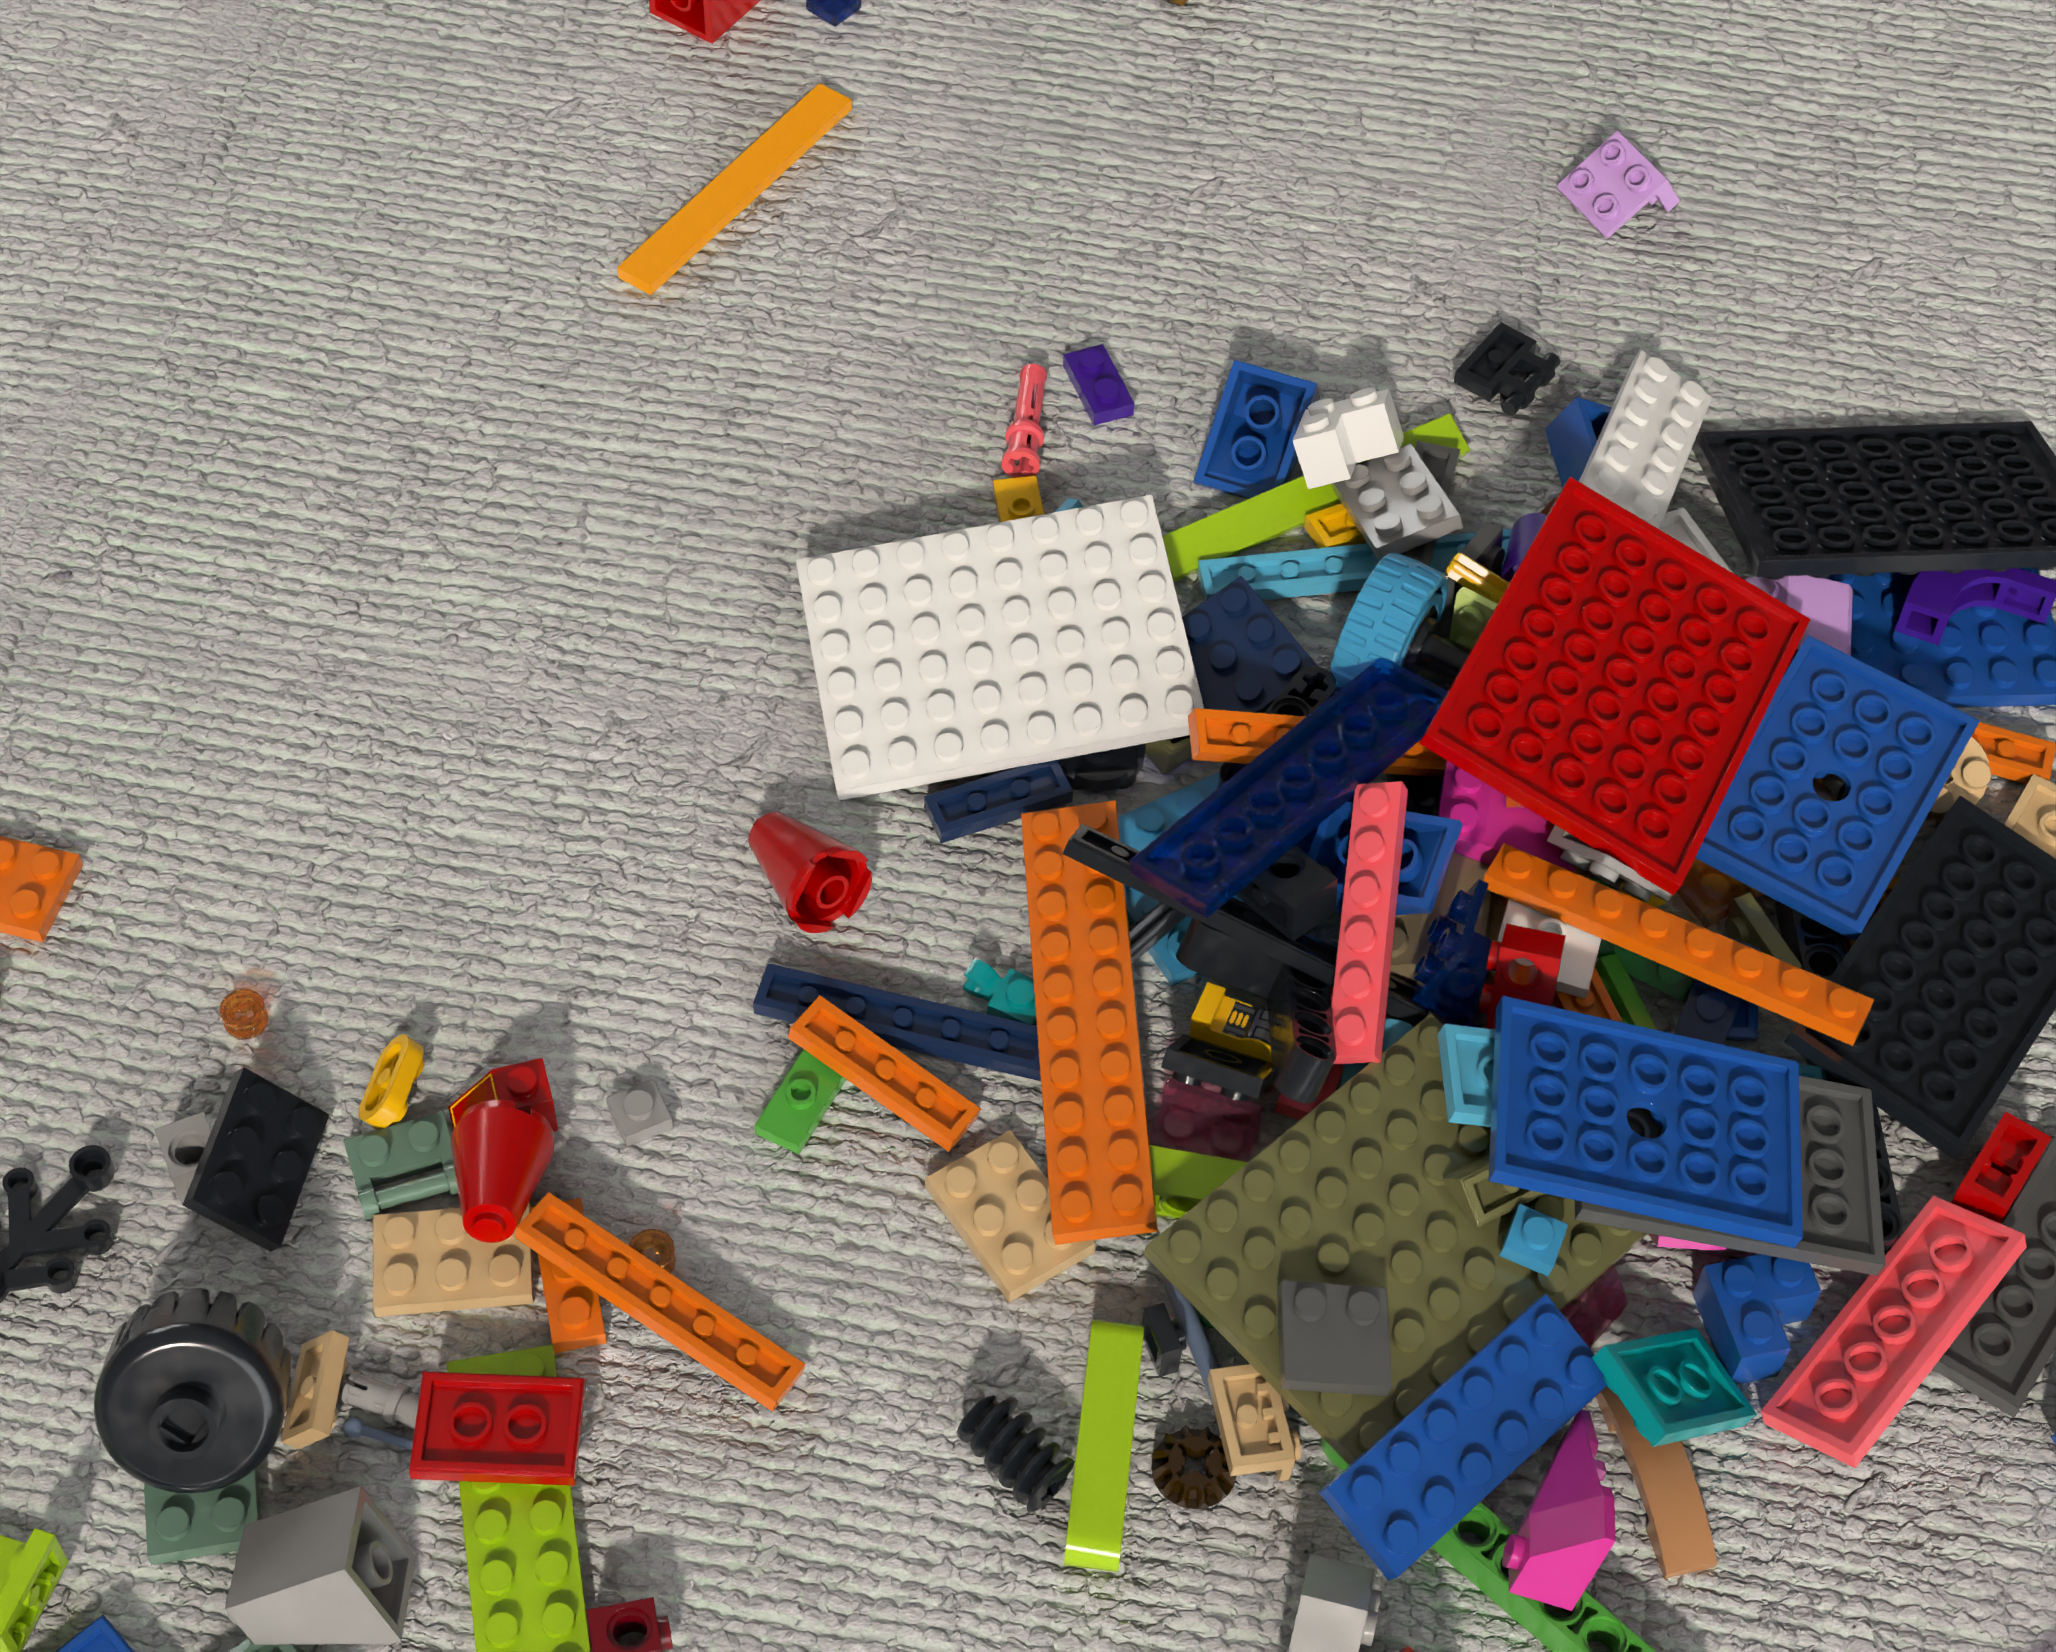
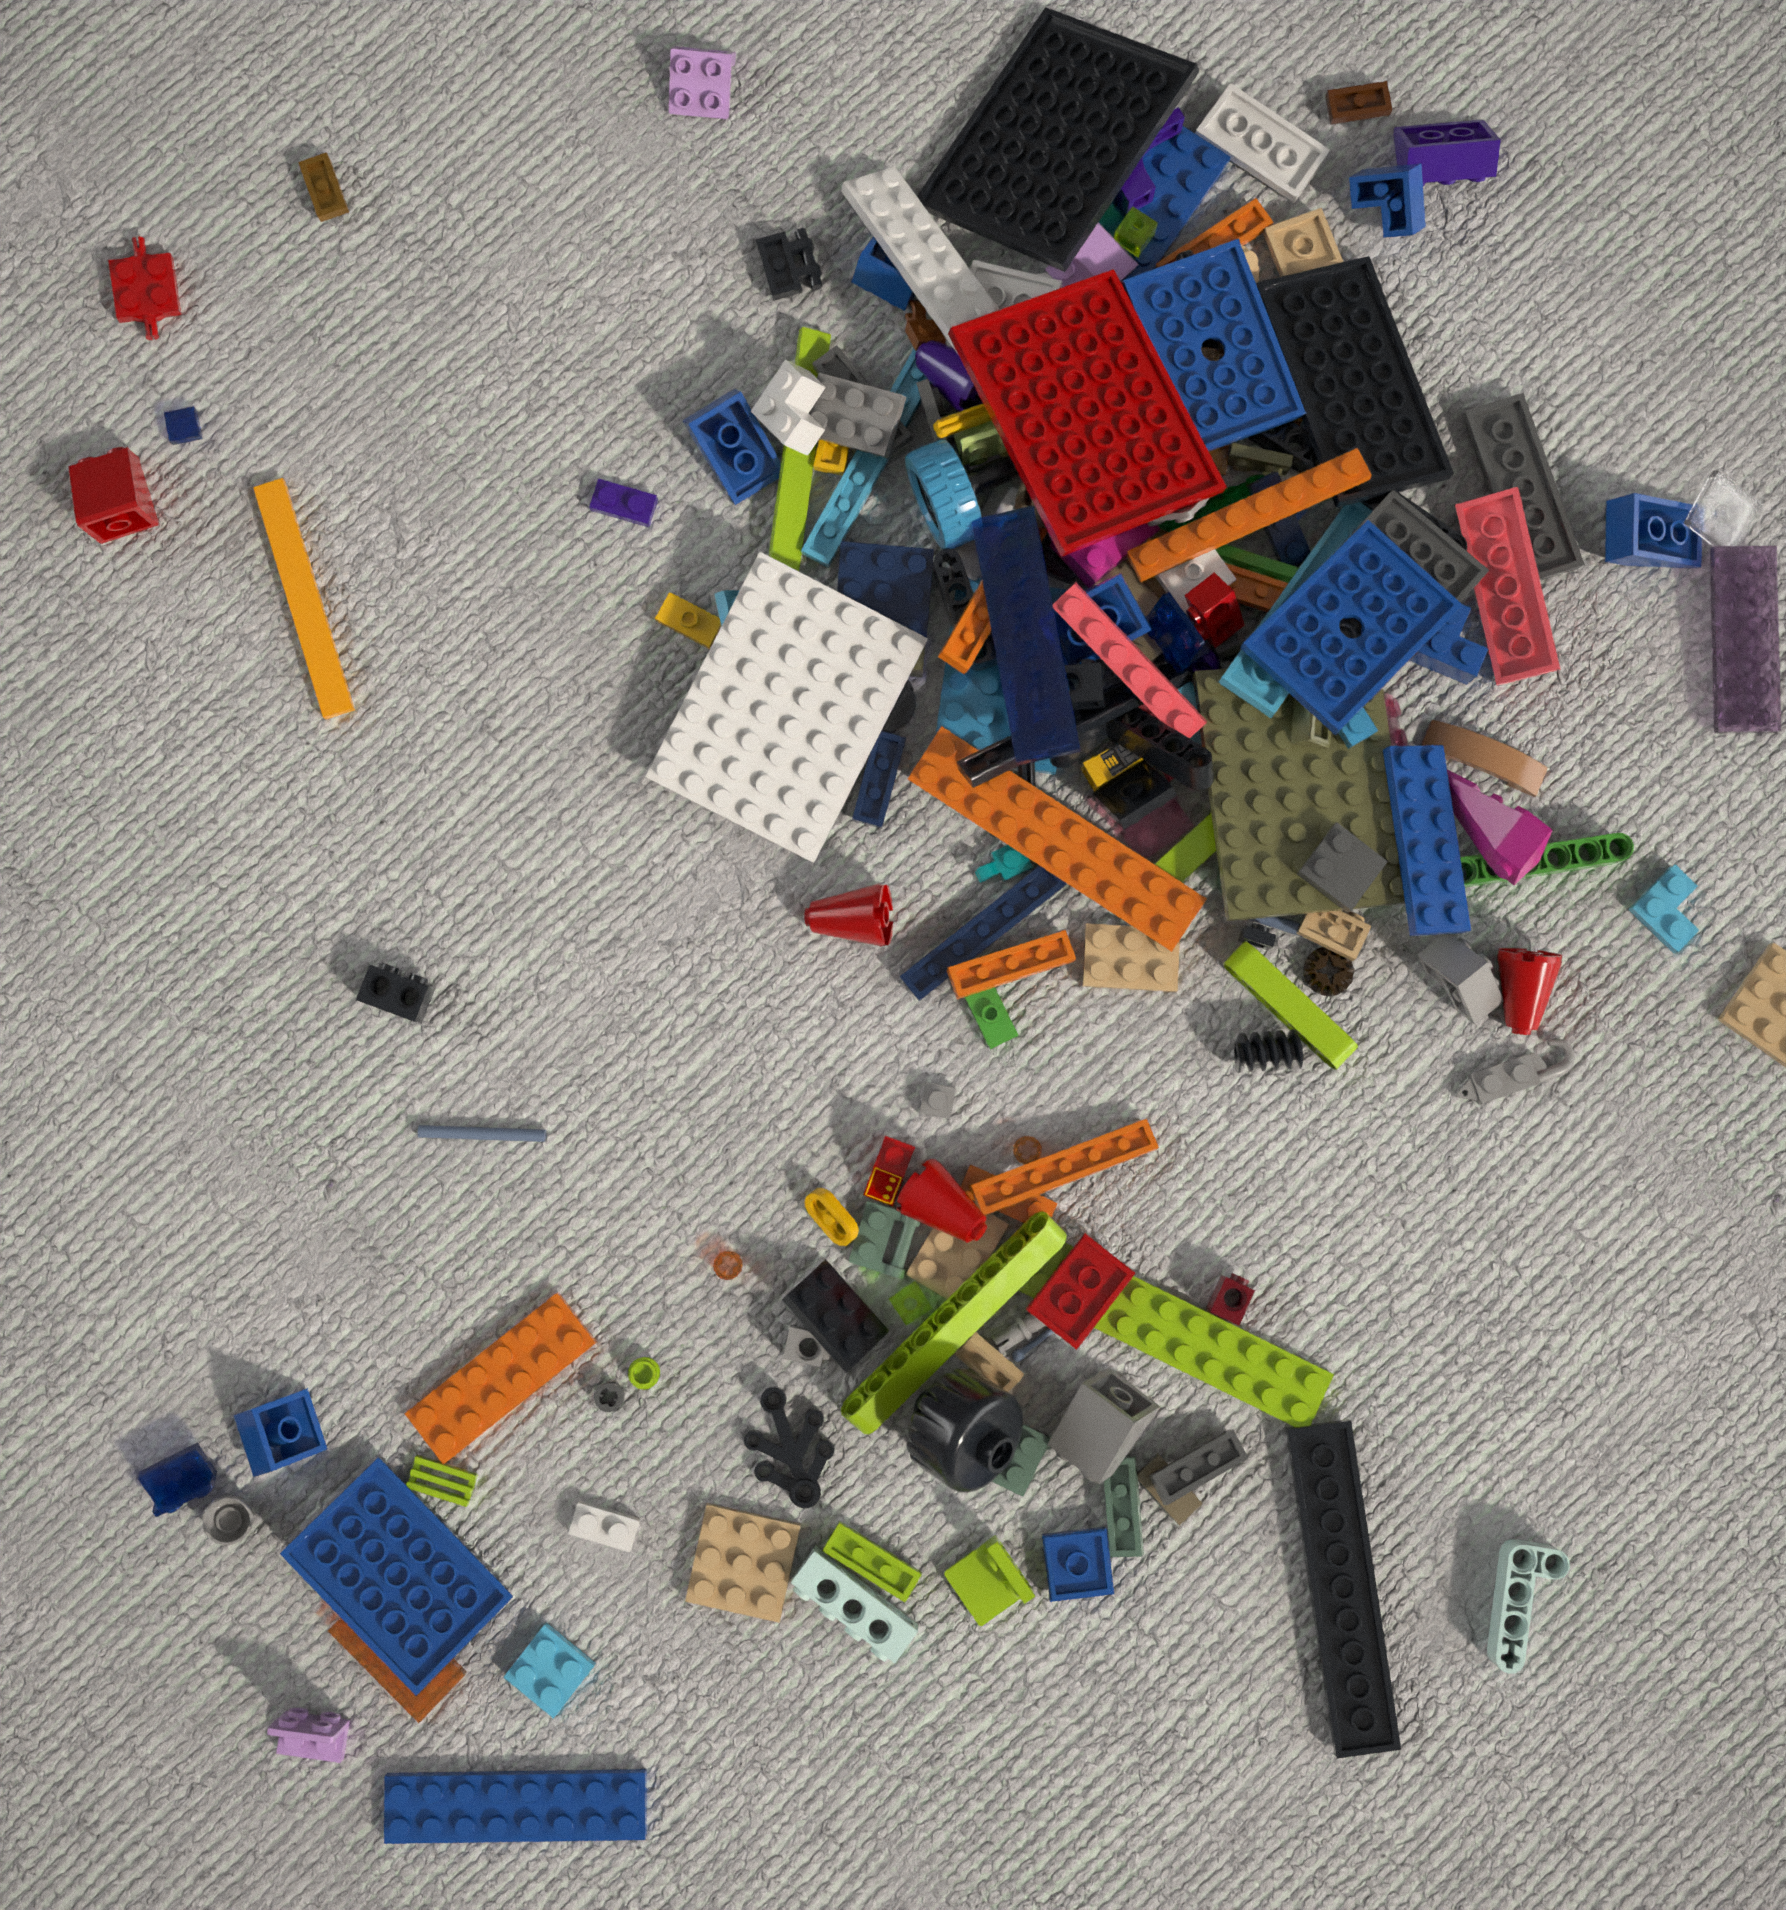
camera: 50 degrees left, 30 degrees up
(32, 1007) = (644, 1373): none -> lime plate
(234, 674) = (482, 1133): none -> sand blue bar
(345, 496) = (394, 998): none -> black brick
(345, 1253) = (910, 1290): none -> clear neon green plate
(355, 1302) = (953, 1323): none -> lime beam
(1025, 434) = (634, 574): coral pin -> none
(1673, 1386) = (1465, 719): teal plate -> none
(1884, 640) = (1132, 239): none -> clear neon green plate
(2001, 1168) = (1471, 464): red brick -> none

